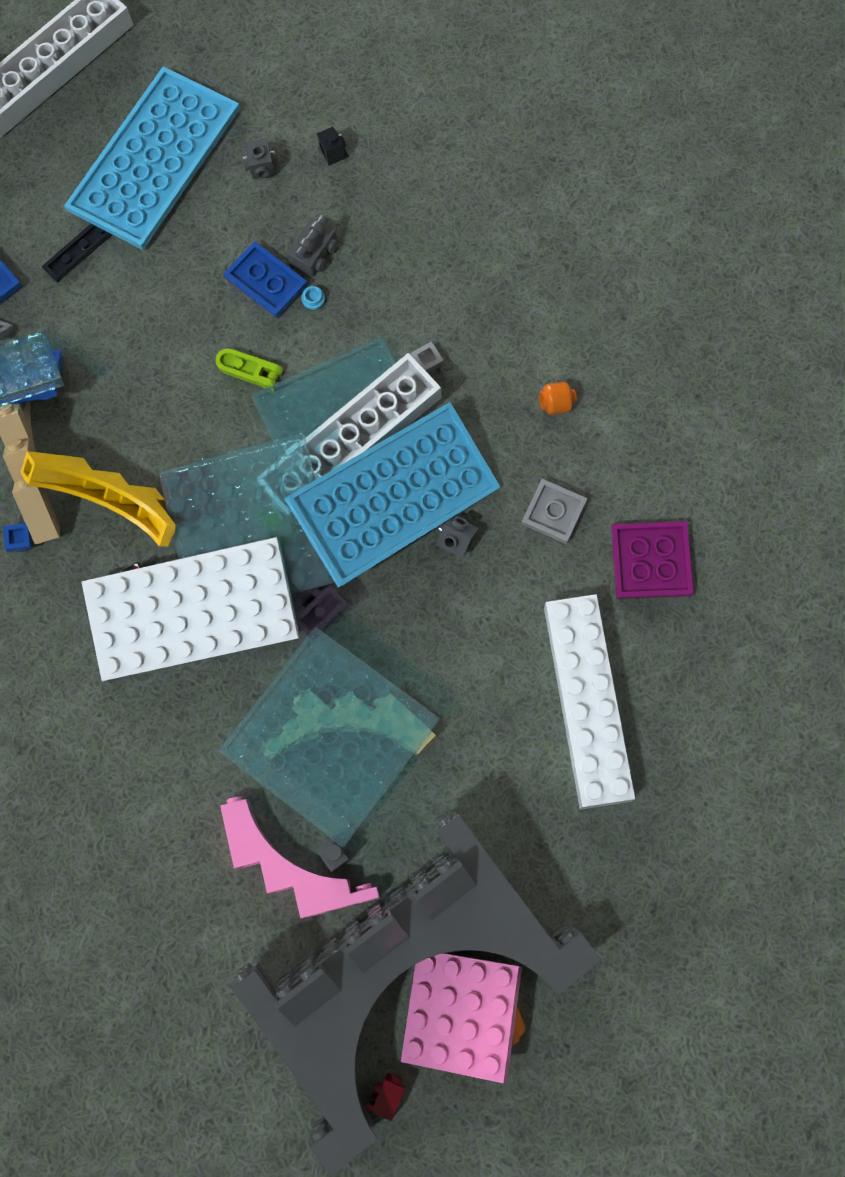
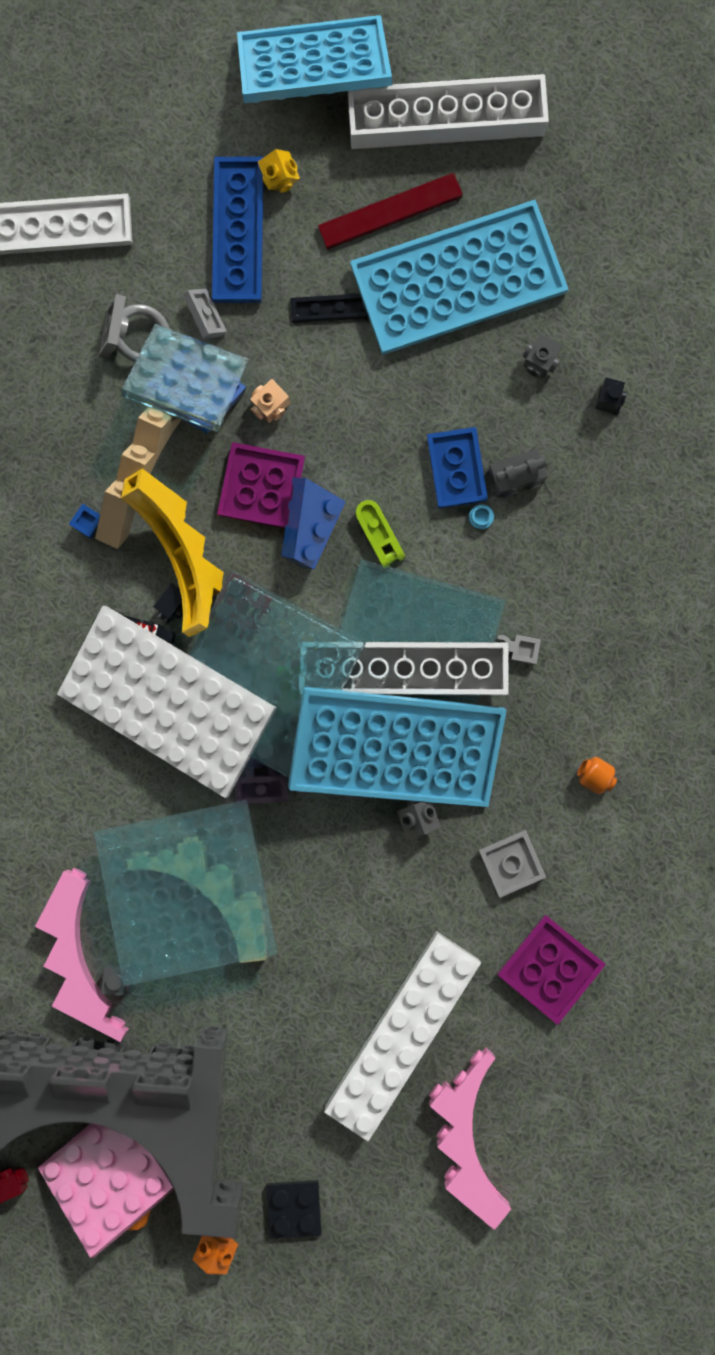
camera: 40 degrees right, 10 degrees up
(64, 155) = (390, 211): none -> dark red tile
(86, 343) = (269, 401): none -> light nougat brick
(131, 407) = (259, 485): none -> magenta plate
(134, 543) = (170, 604): none -> black brick
(190, 397) = (309, 523): none -> blue wedge
(597, 994) = (215, 1254): none -> orange brick
(628, 909) = (294, 1209): none -> black plate
(735, 763) = (468, 1179): none -> bright pink arch

